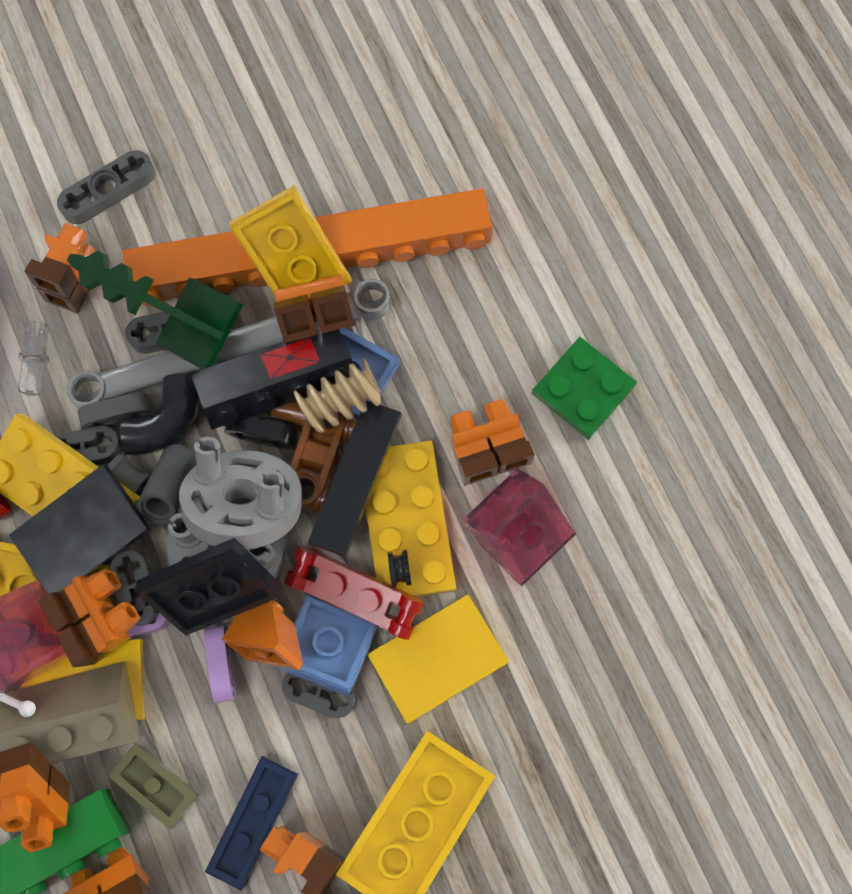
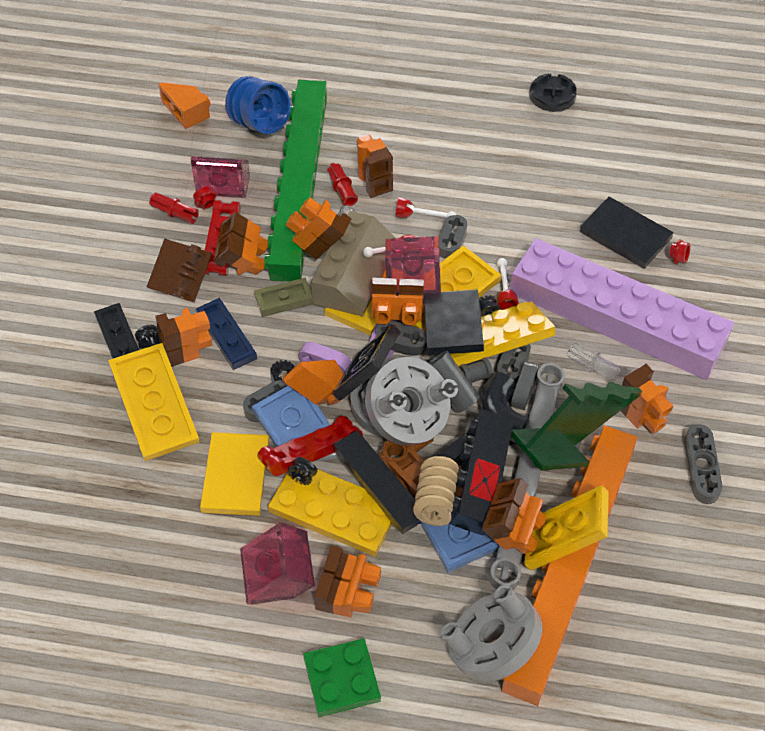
camera: 125 degrees right, 20 degrees down
(17, 517) = (488, 305): none -> black bush
(257, 699) = (278, 367): none -> black bush
(480, 275) = (485, 619): none -> light grey piece

